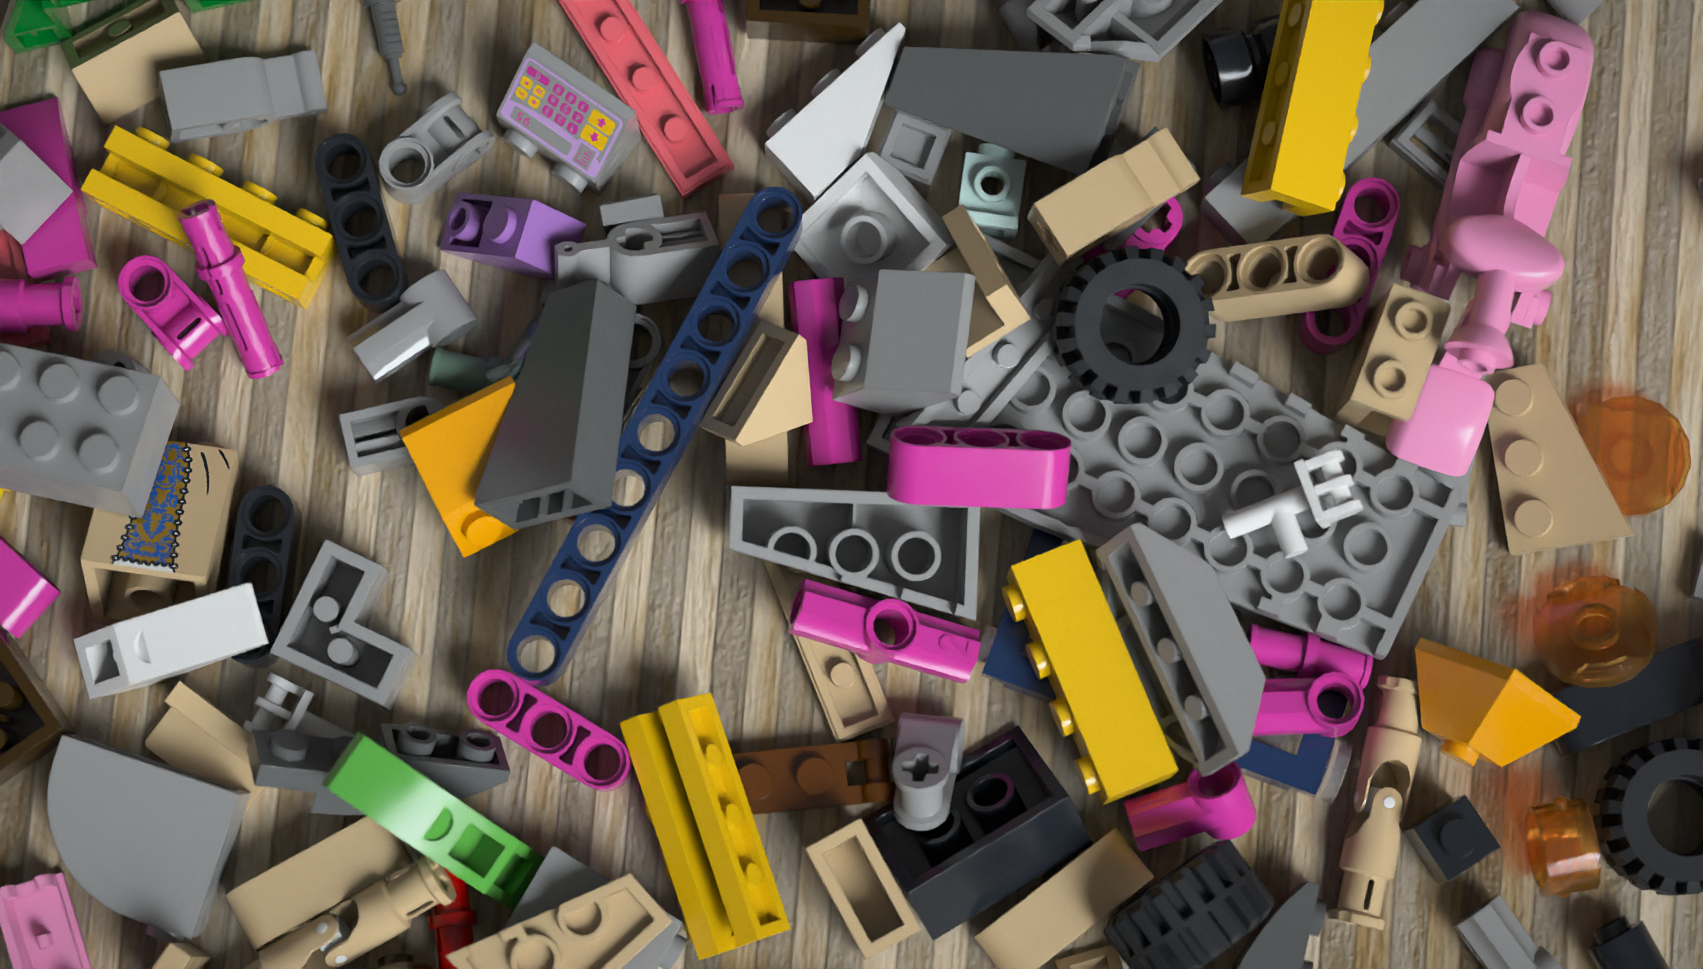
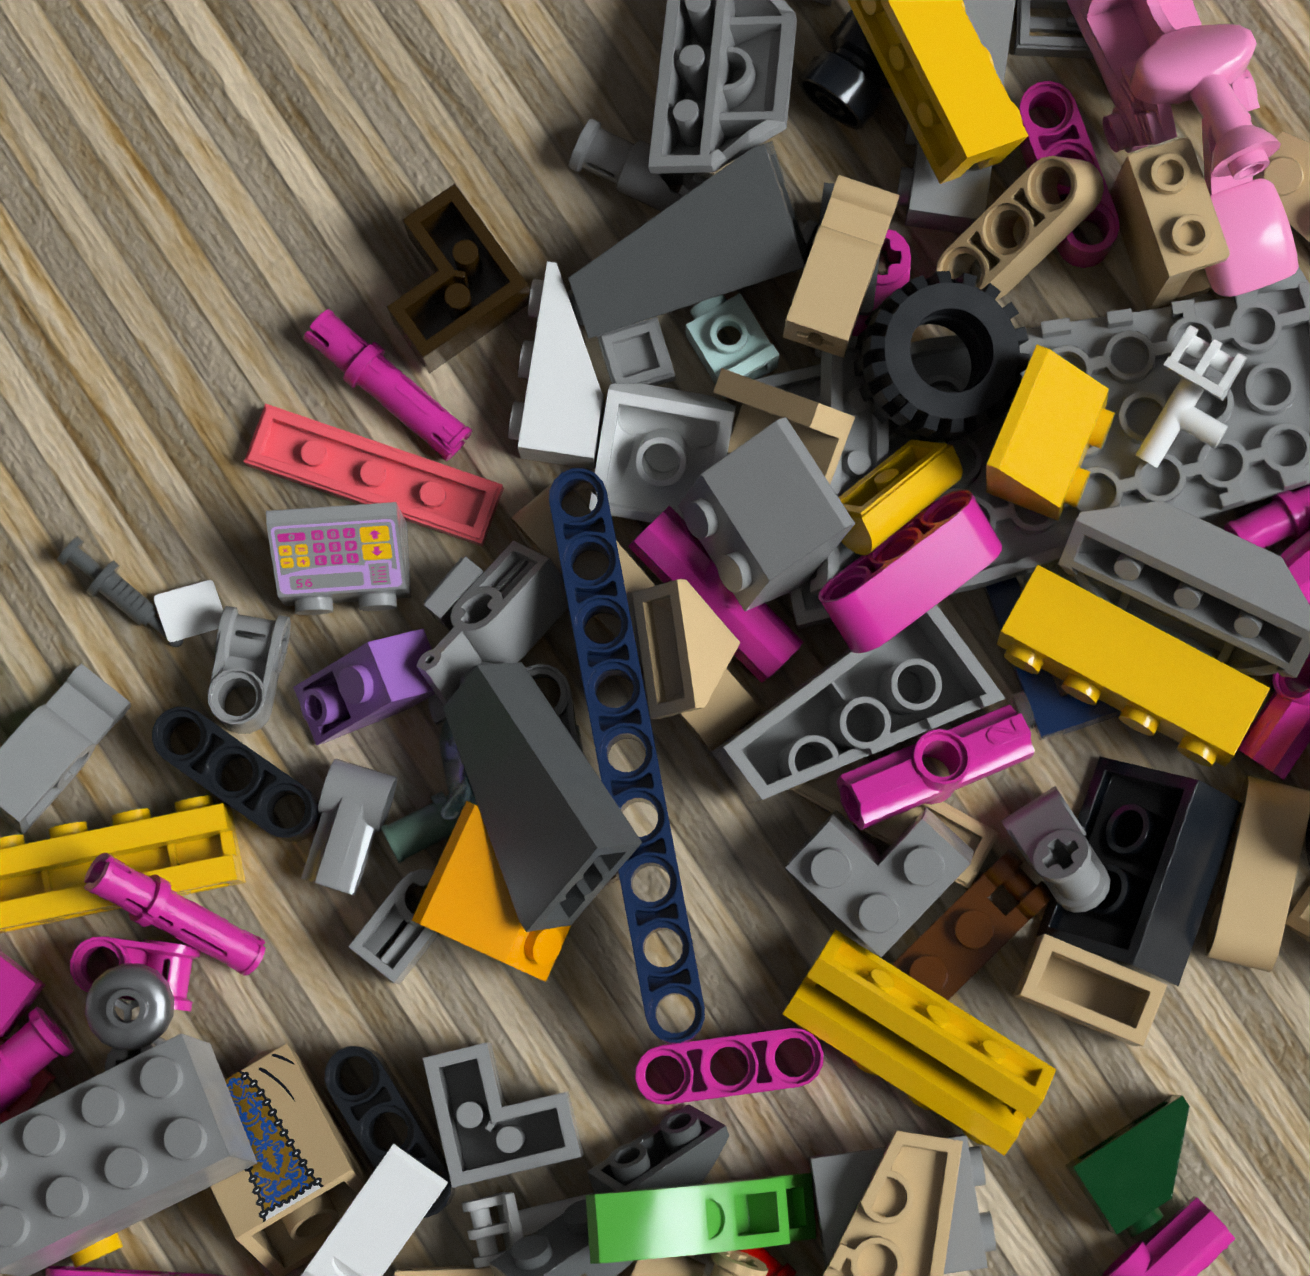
camera: 30 degrees left, 0 degrees up
(163, 330) = (151, 995): none -> flat silver head
(426, 74) = (189, 610): none -> white sticker
(764, 687) = (875, 890): none -> light grey brick
(1016, 400) = (898, 492): none -> yellow brick
(1164, 447) = (1048, 435): none -> yellow slope

